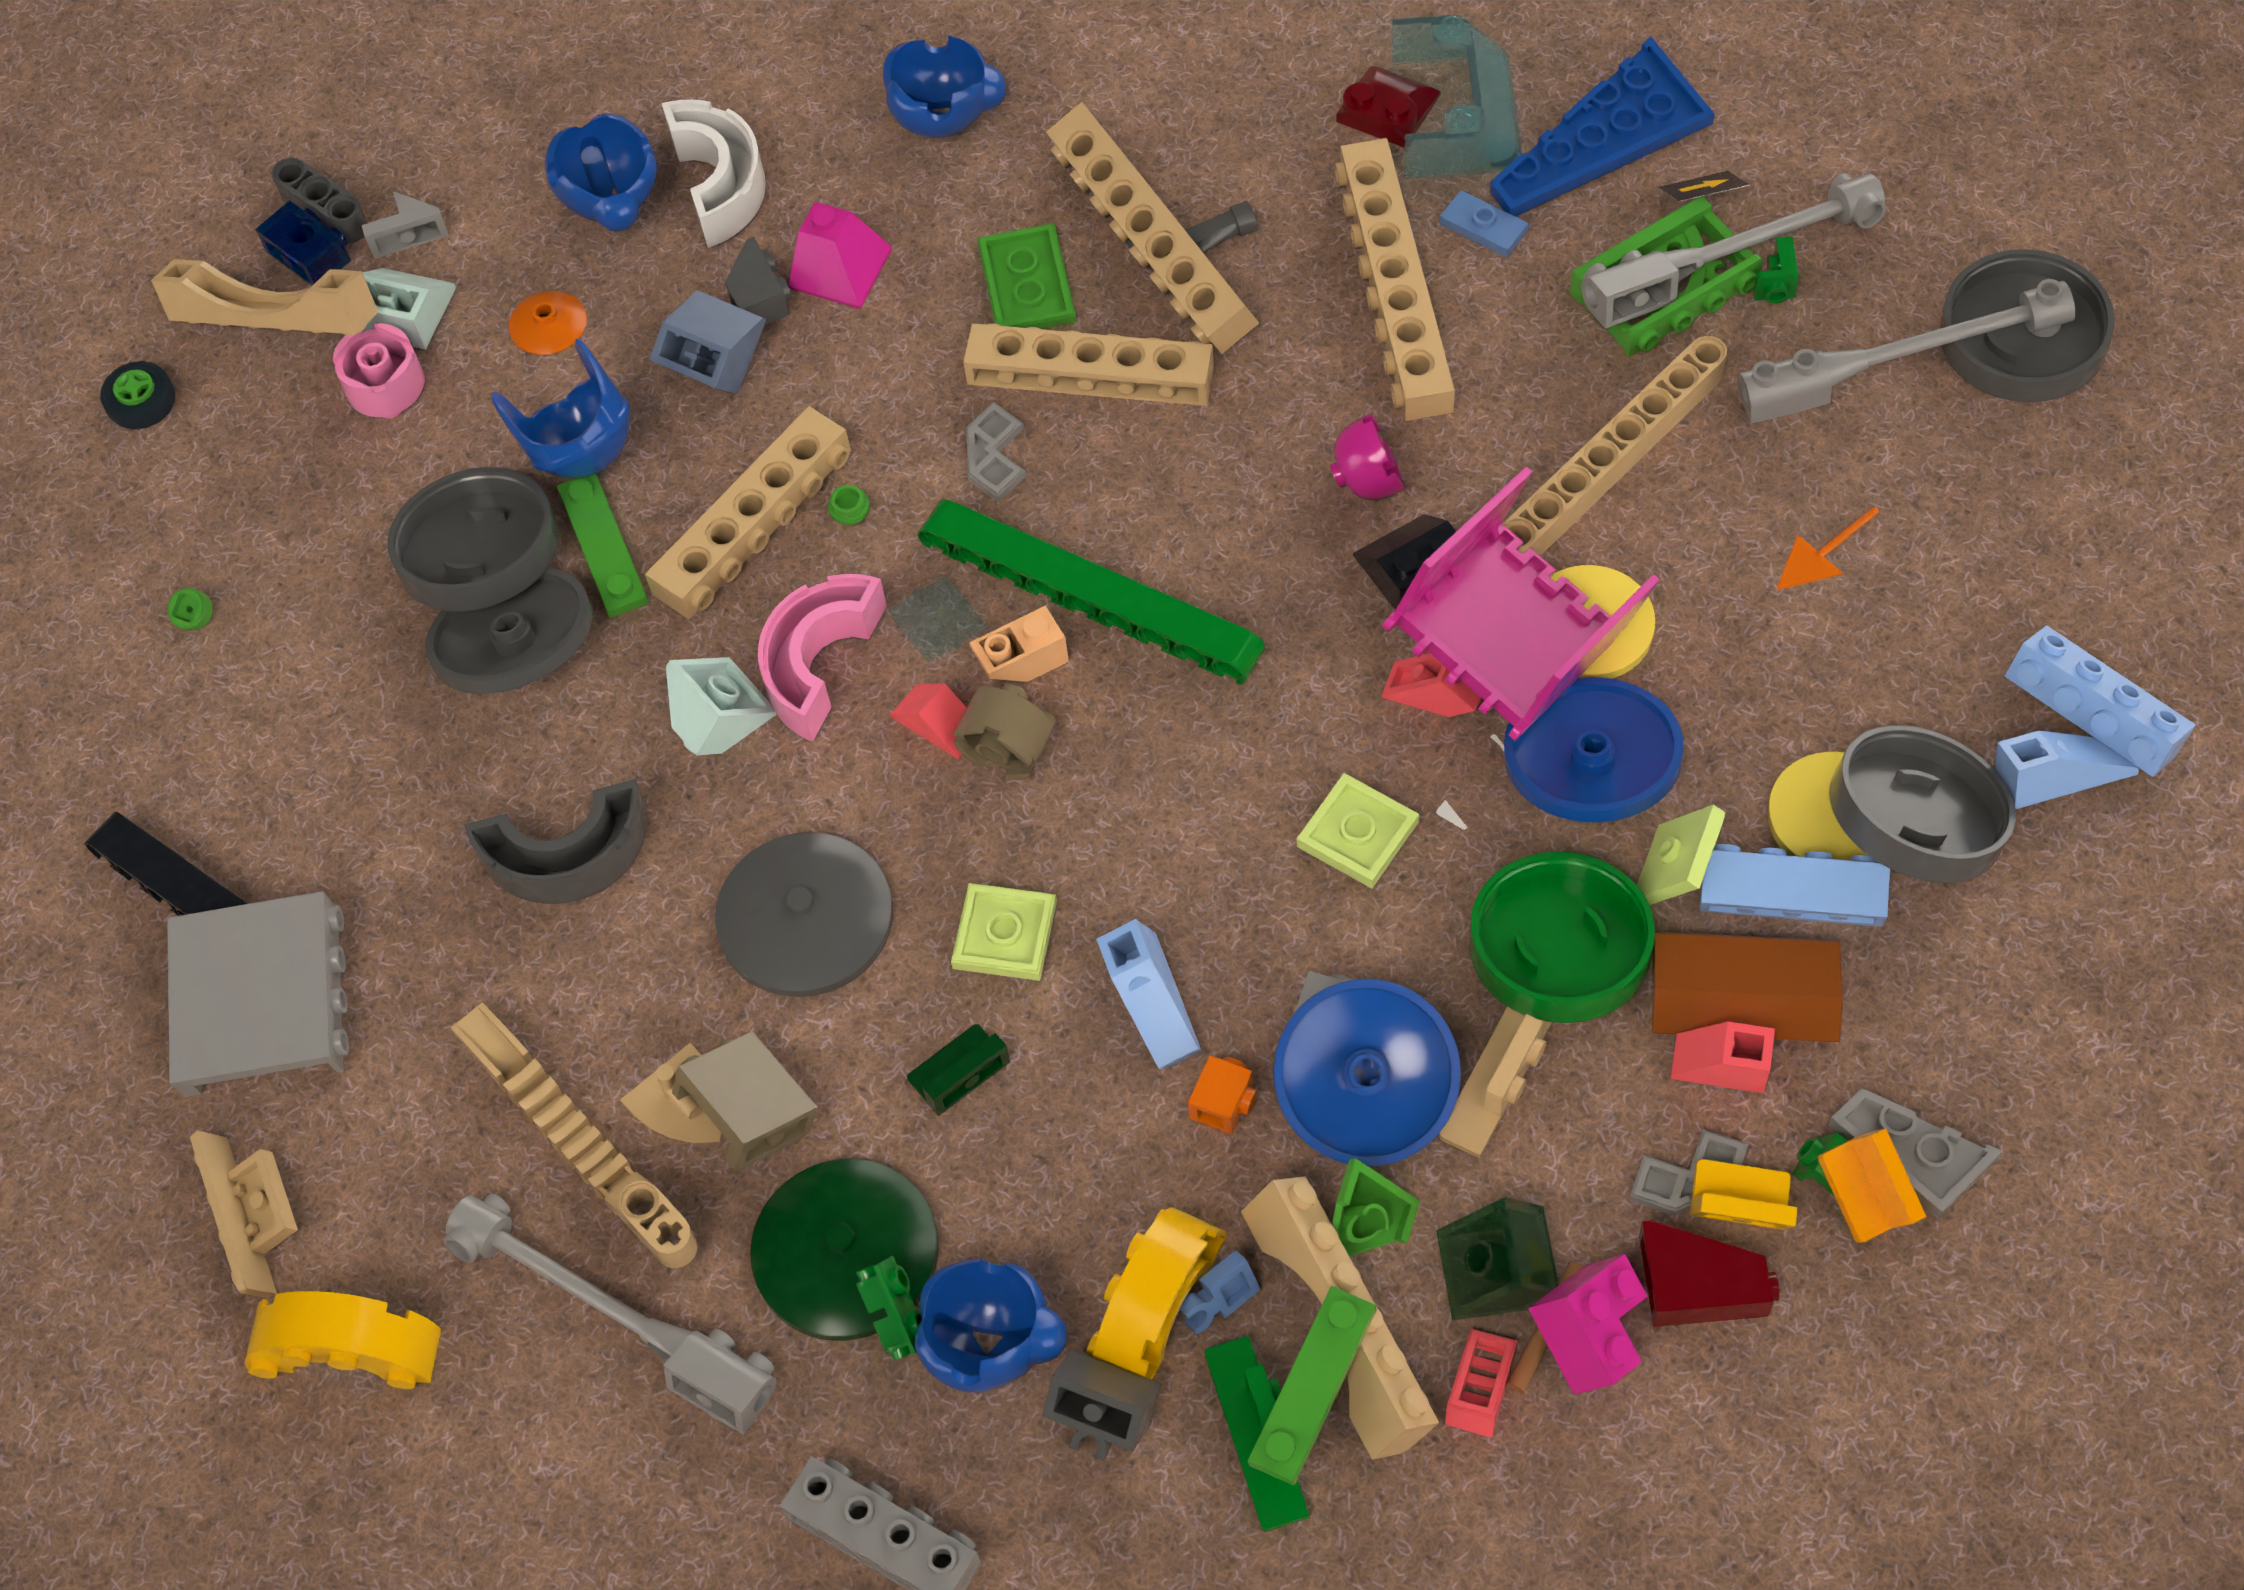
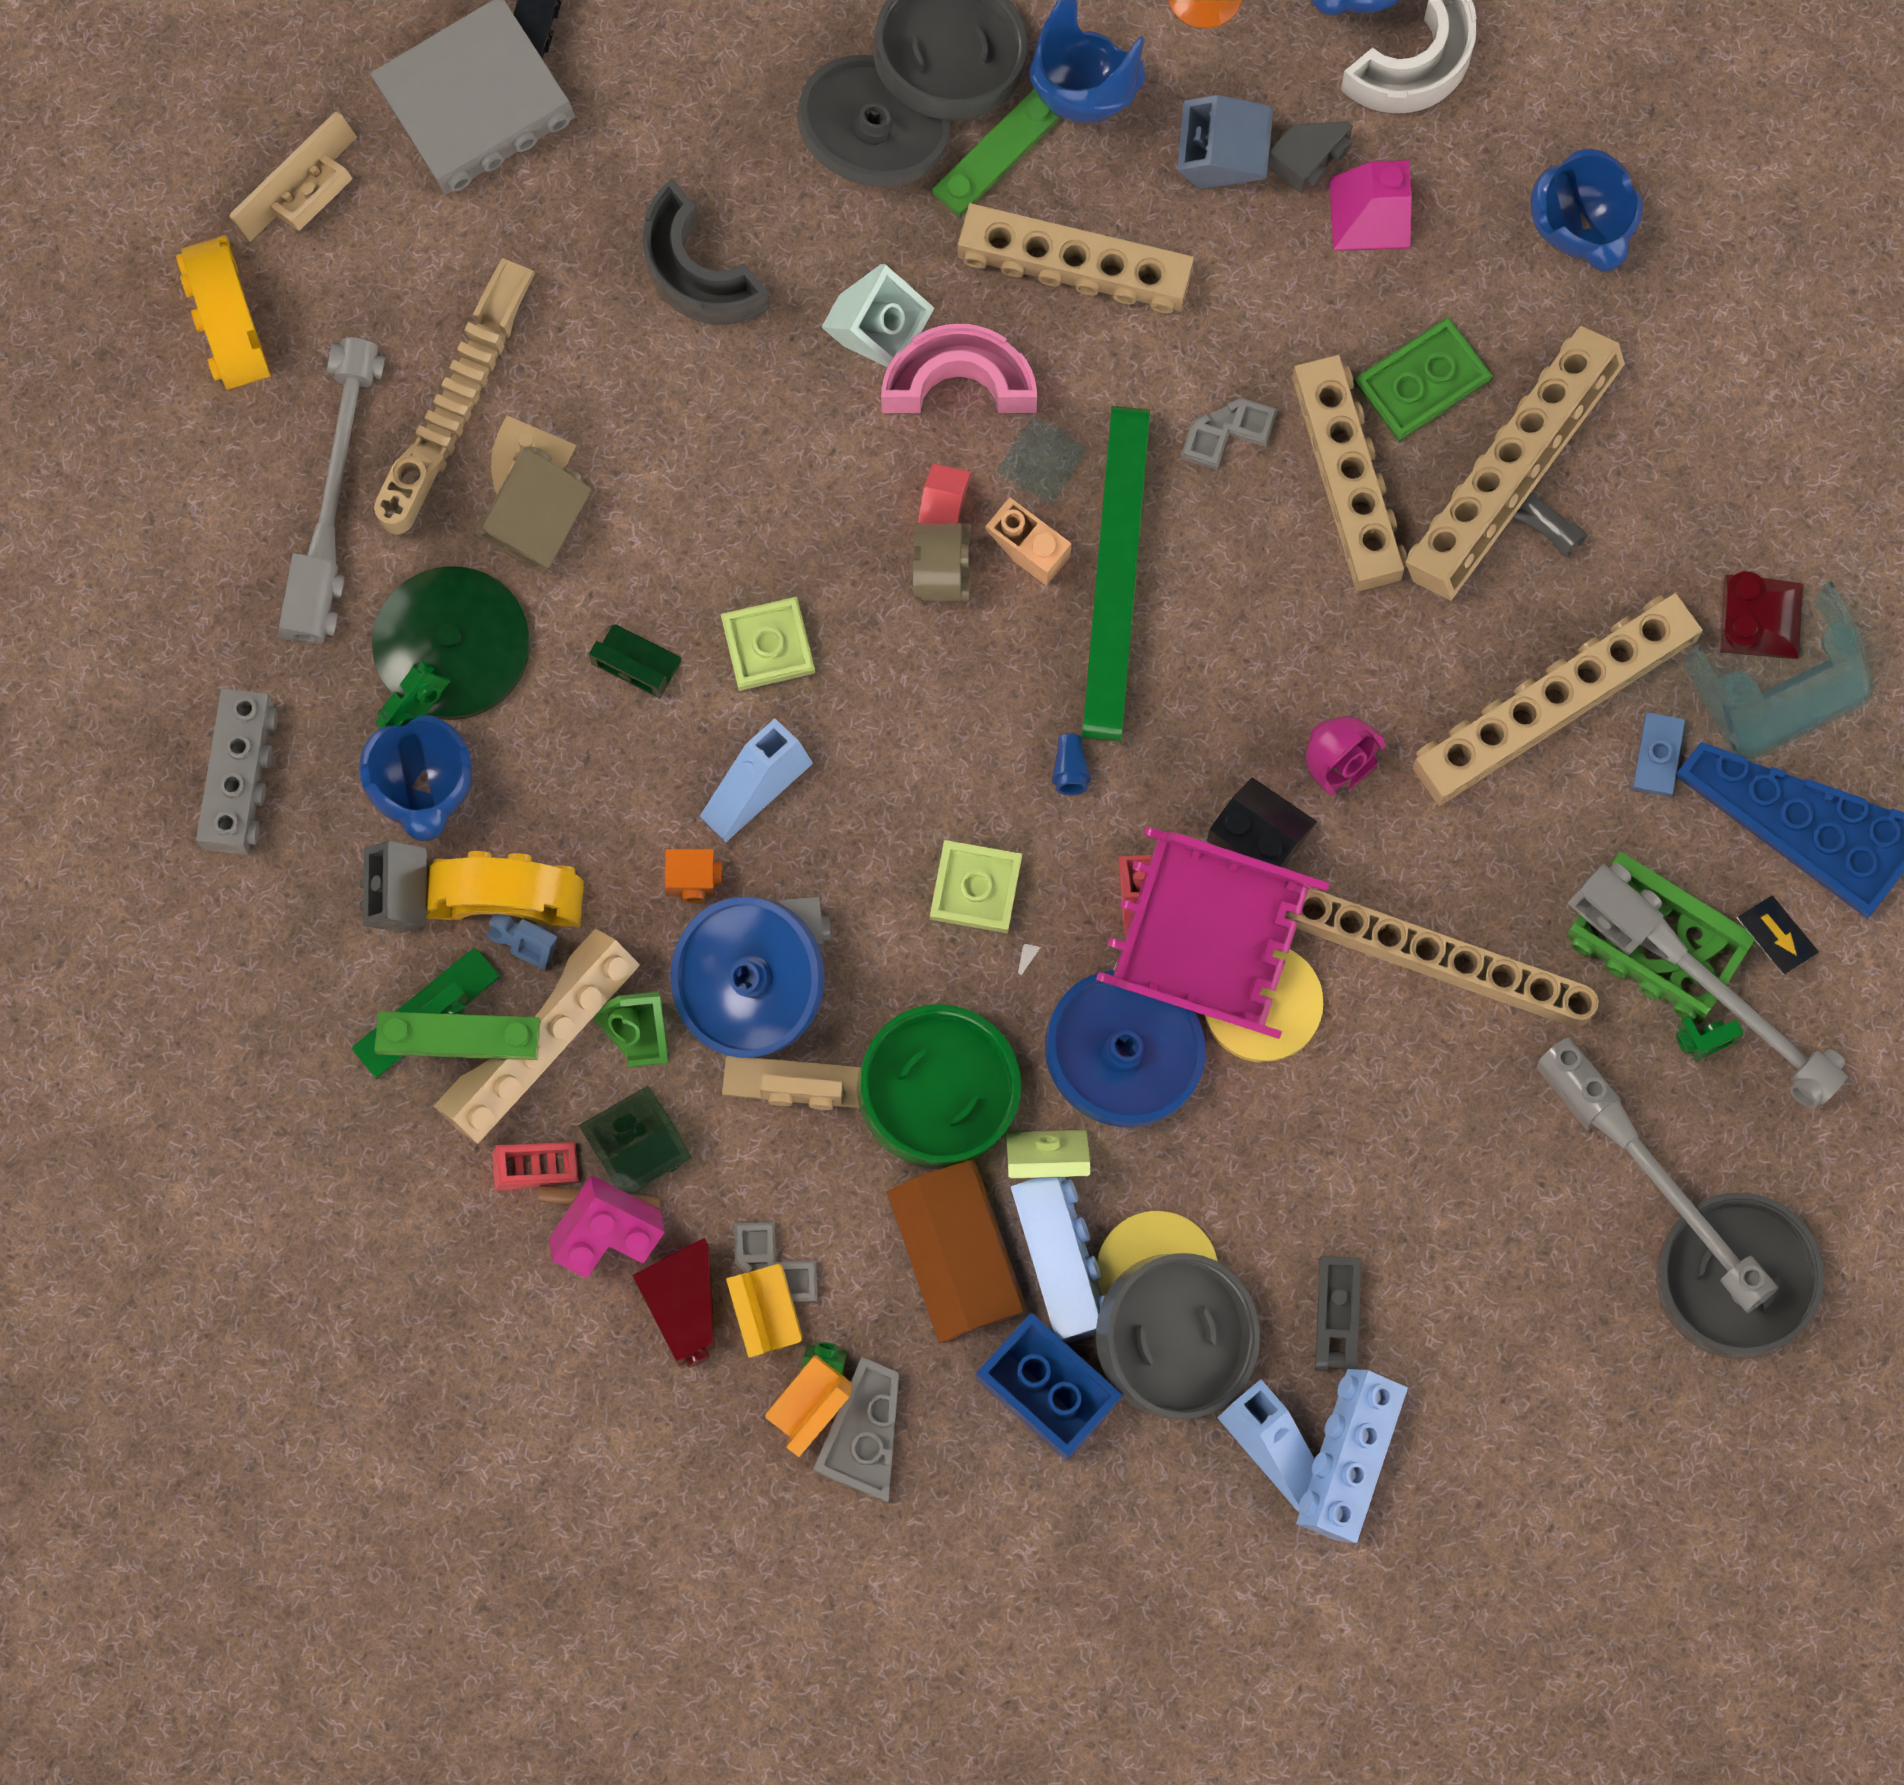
camera: 60 degrees right, 15 degrees up
(804, 914) = (721, 480): dark grey dish -> none
(848, 505) = (1120, 336): bright green plate -> none
(1270, 700) = (1070, 767): none -> blue cone
(1725, 1056) = (881, 1254): coral slope -> none
(1809, 565) = (1406, 1167): orange piece -> none
(1934, 946) = (1048, 1387): none -> blue slope
(1941, 667) = (1338, 1311): none -> dark grey plate

